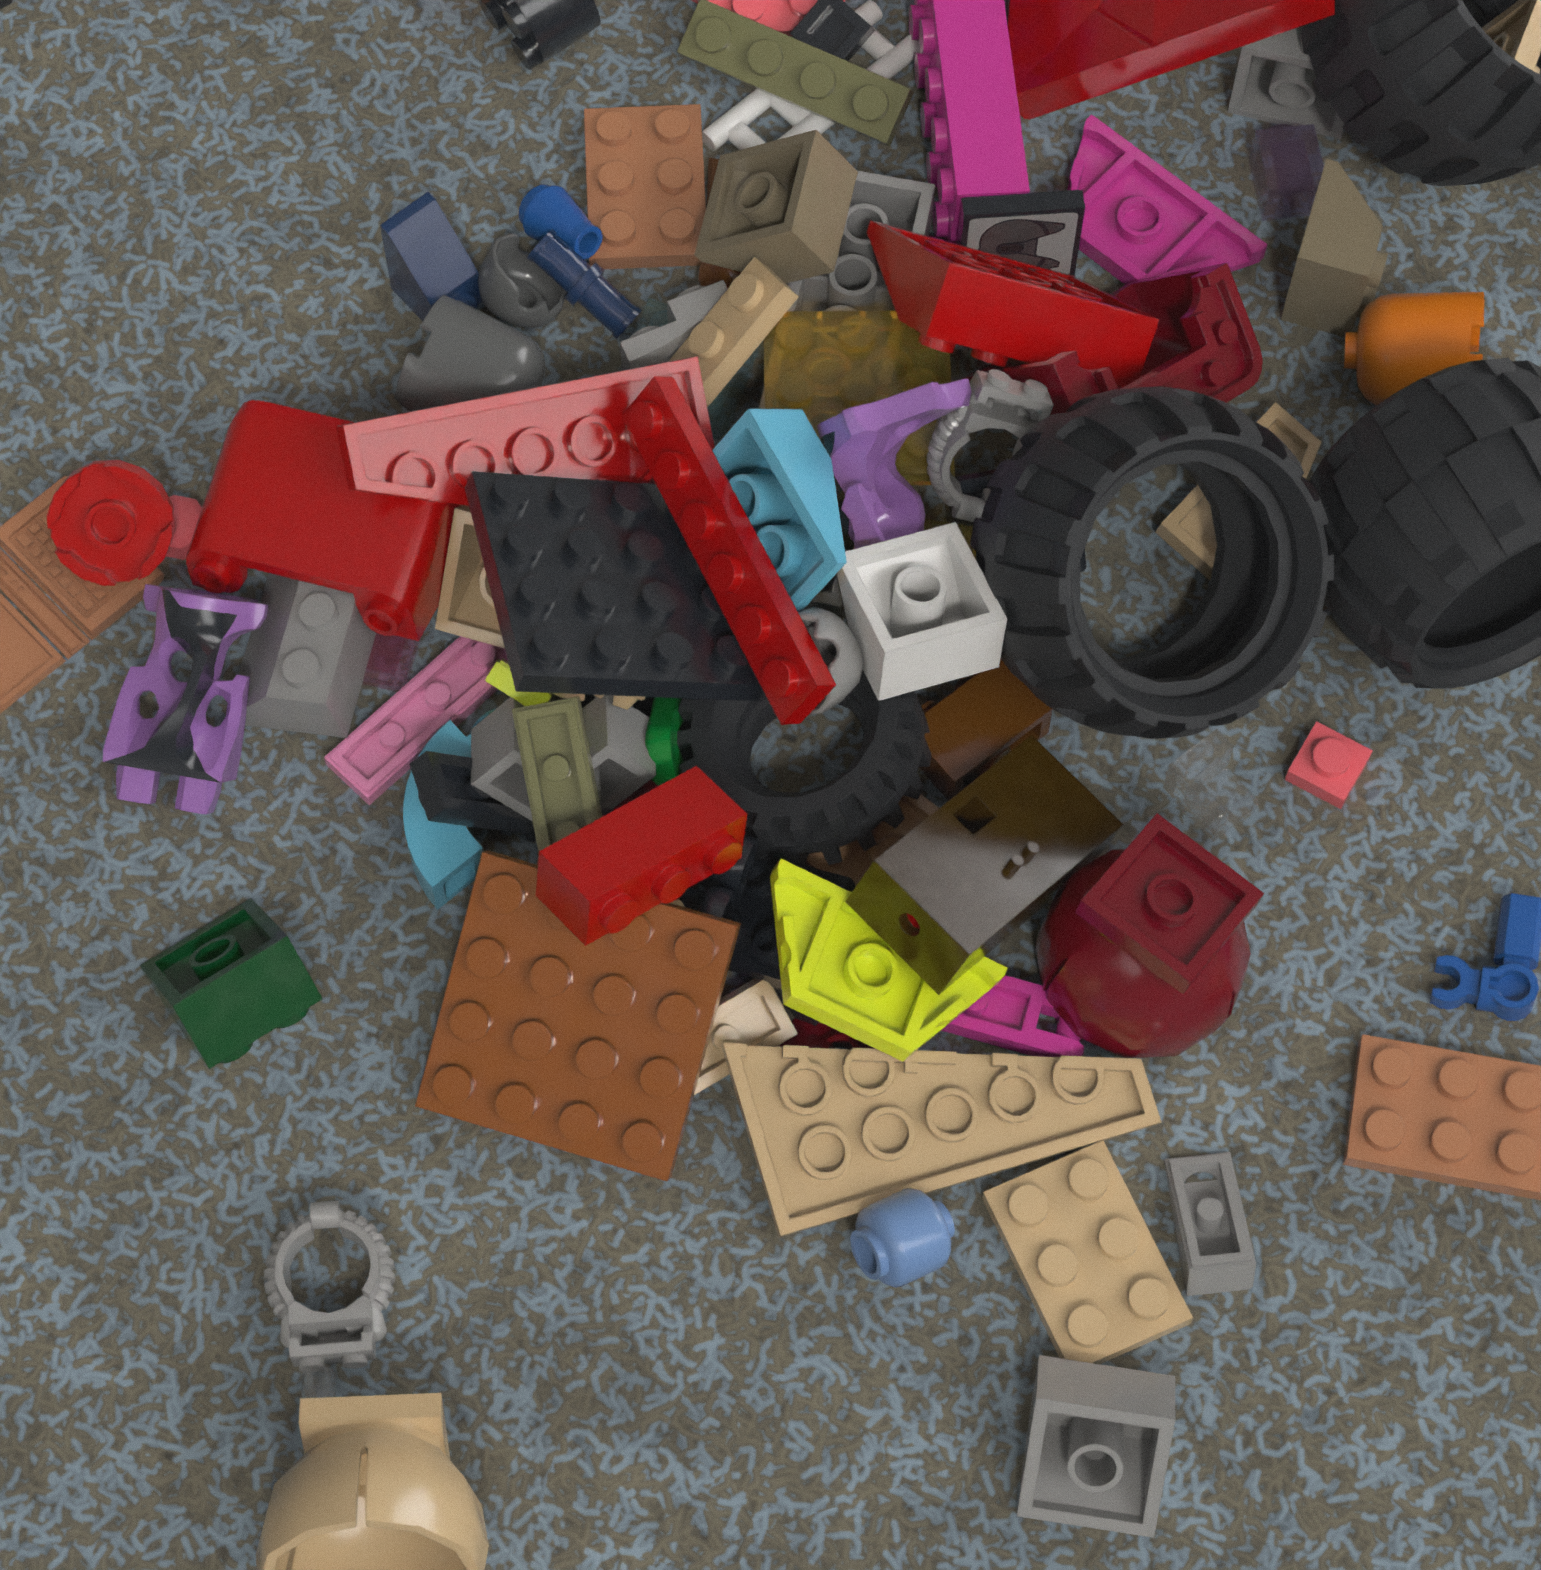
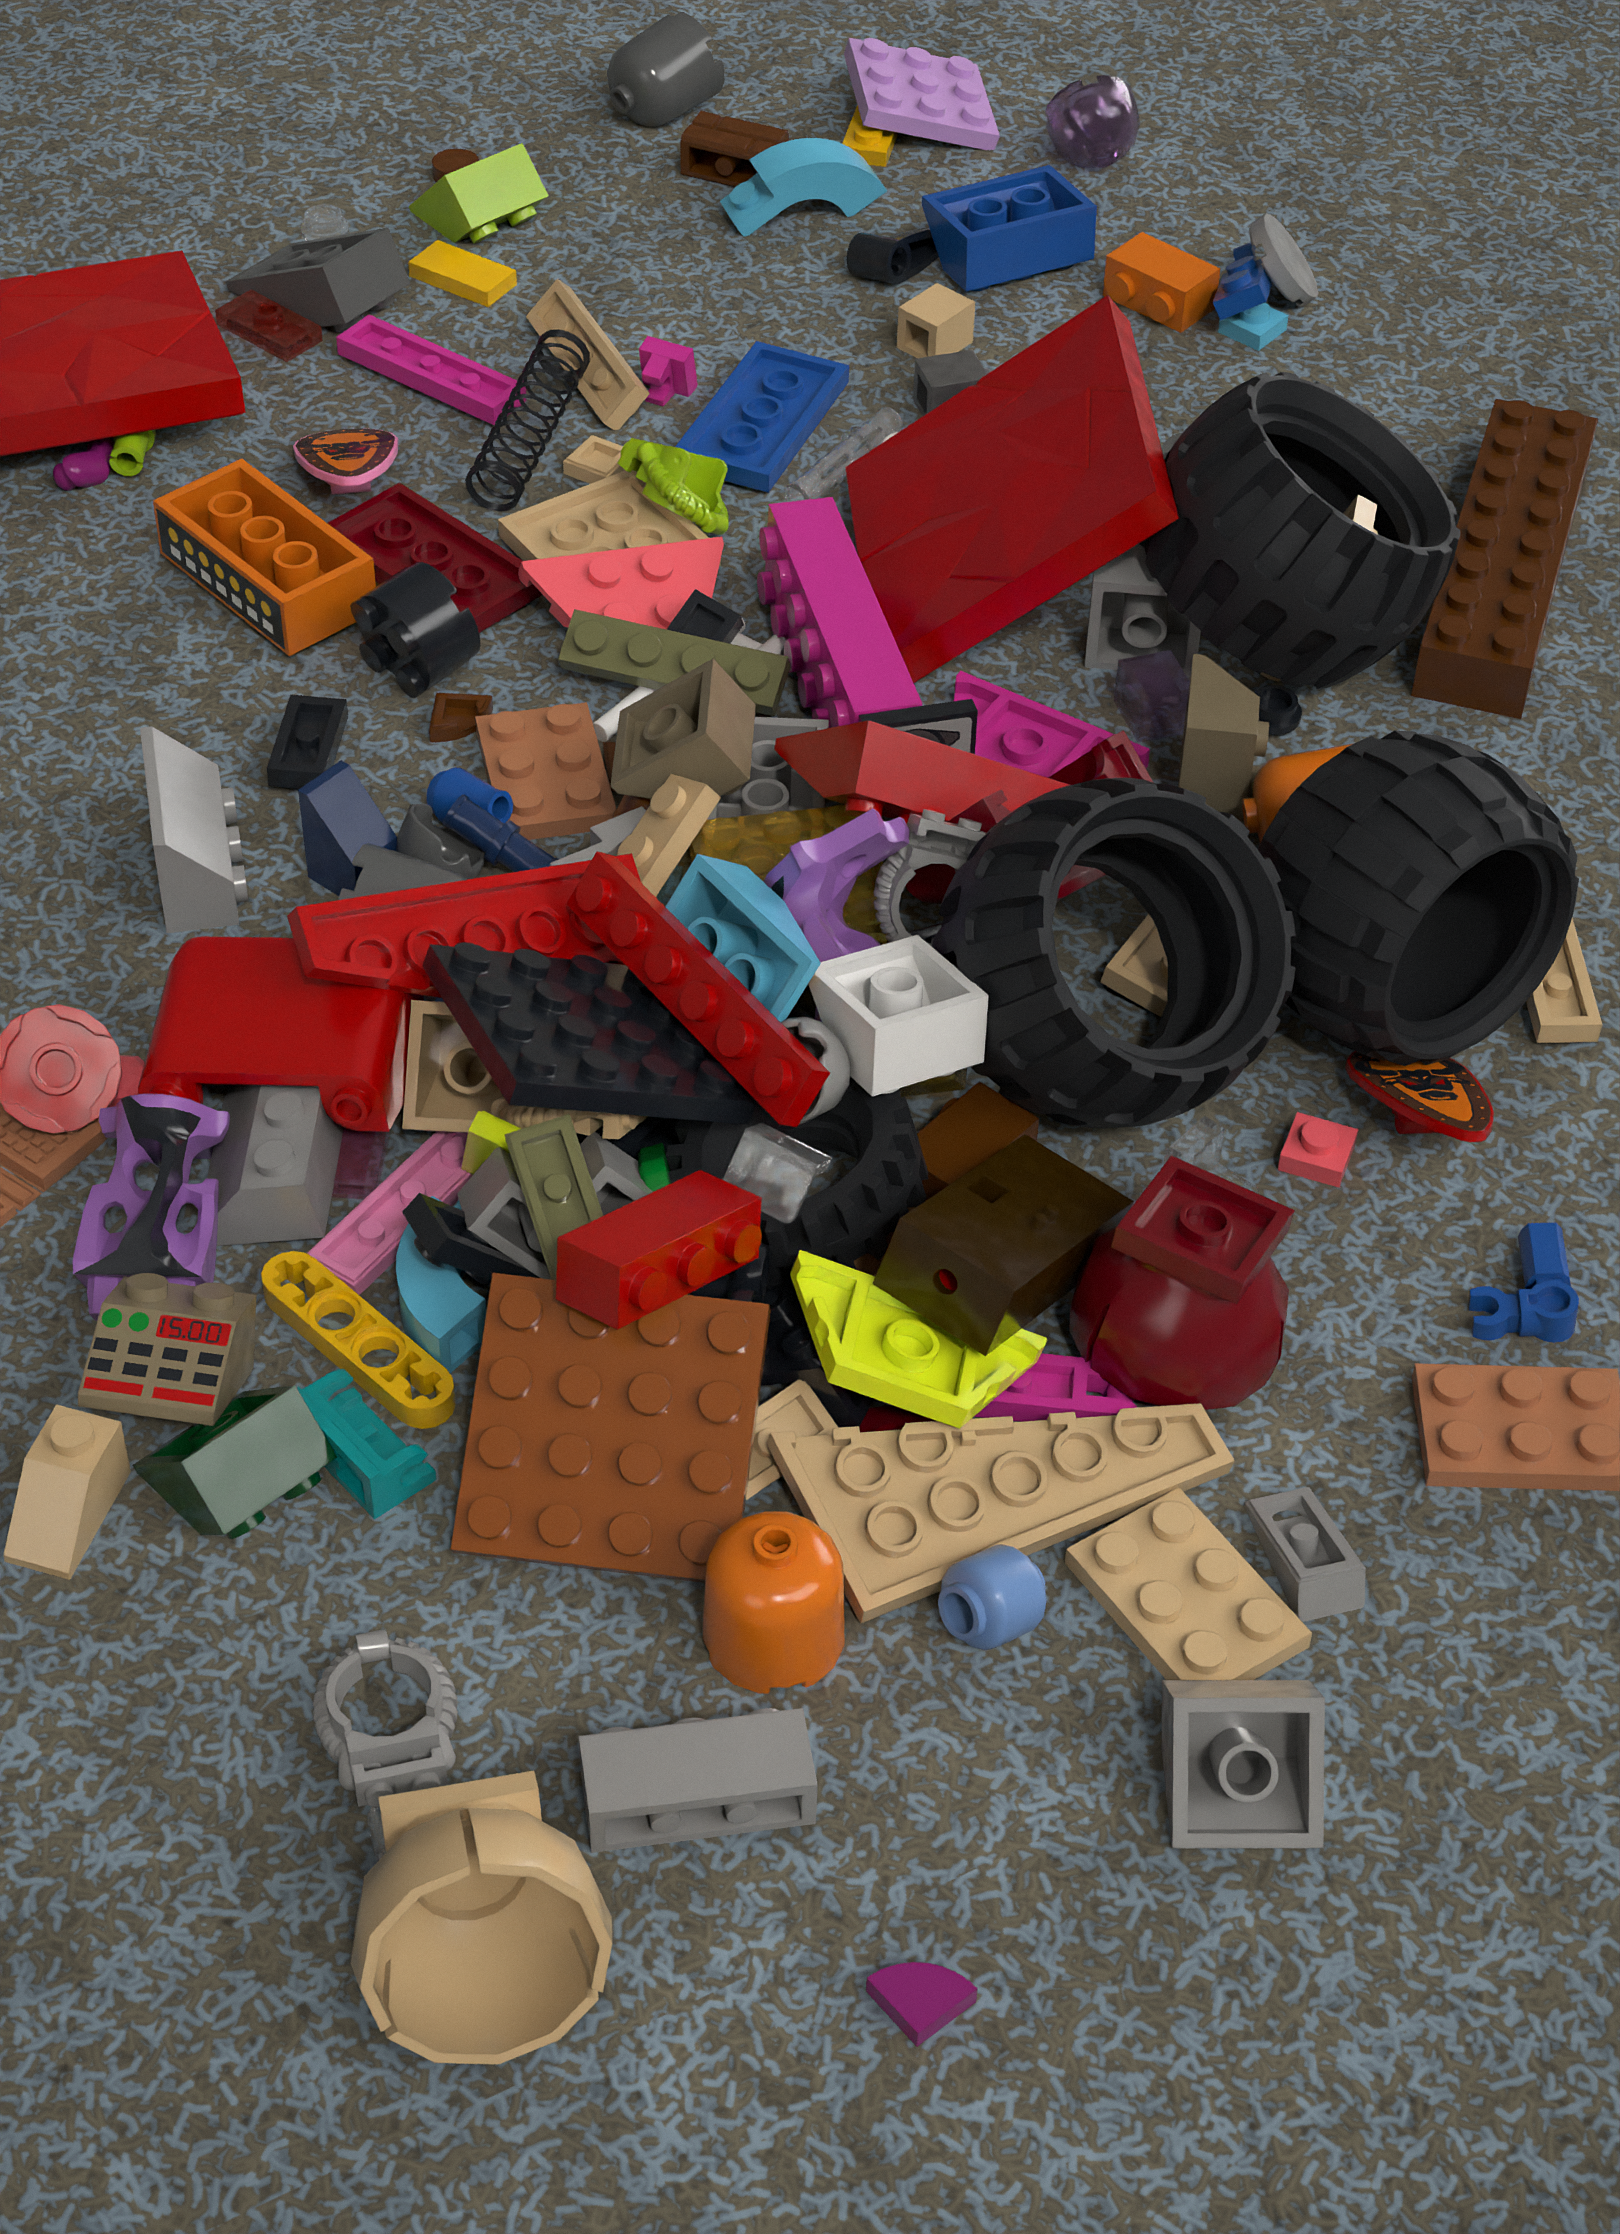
camera: 10 degrees left, 20 degrees down
(72, 996) = (66, 1490): none -> tan slope
(181, 863) = (169, 1349): none -> dark tan slope
(276, 238) = (191, 836): none -> light grey slope
(349, 977) = (370, 1456): none -> teal hinge
(359, 859) = (364, 1334): none -> yellow beam
(410, 121) = (306, 740): none -> black plate
(566, 99) = (456, 713): none -> reddish brown tile
(597, 1386) = (697, 1779): none -> light grey brick
(696, 1245) = (774, 1602): none -> orange cylinder
(771, 769) = (775, 1169): none -> clear panel
(1410, 204) = (1279, 708): none -> black plate
(1452, 734) = (1427, 1097): none -> shield

